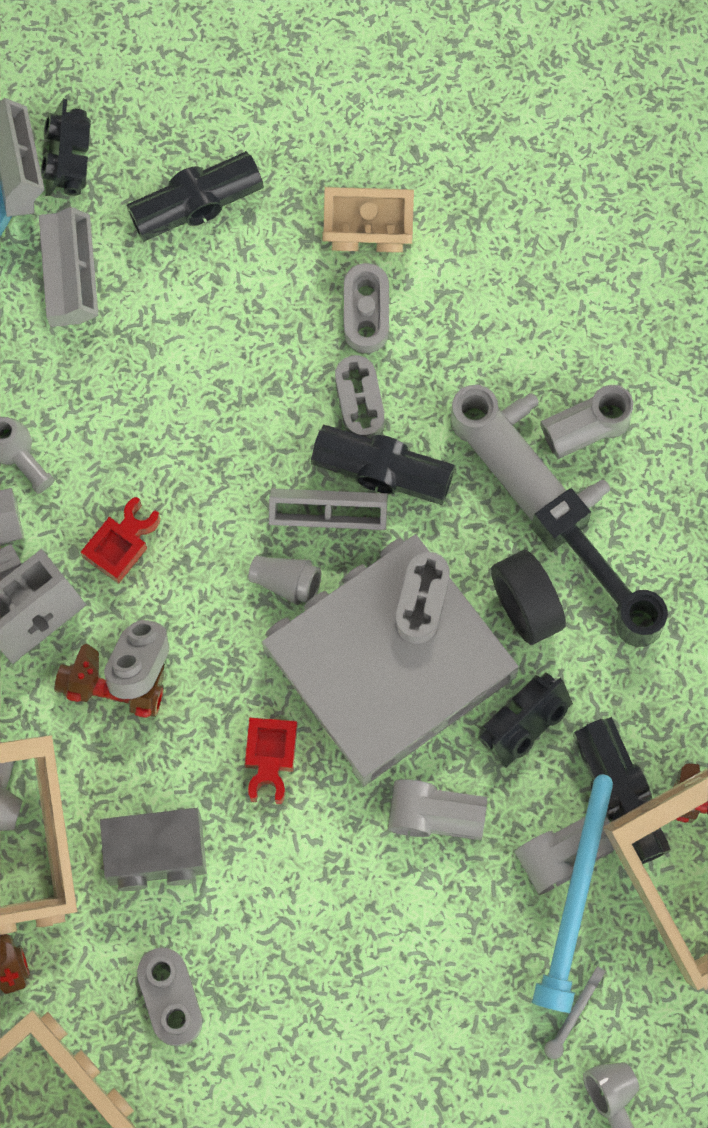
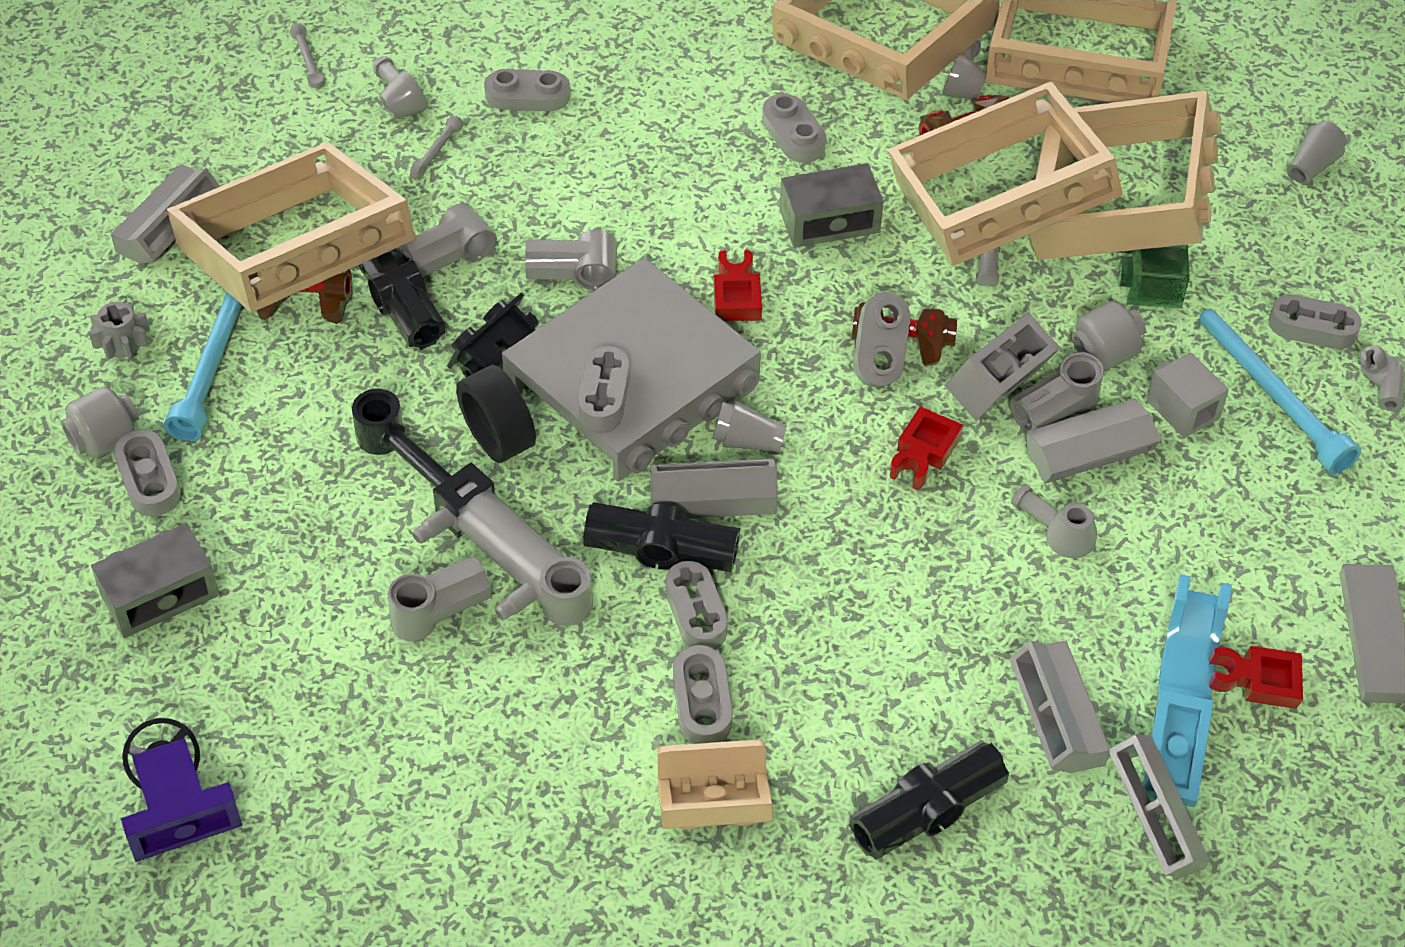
camera: 170 degrees right, 20 degrees down
(66, 133) = (1110, 862): black hinge -> none
(467, 1094) = (527, 90): none -> light grey plate
(556, 988) = (455, 150): medium azure piece -> none

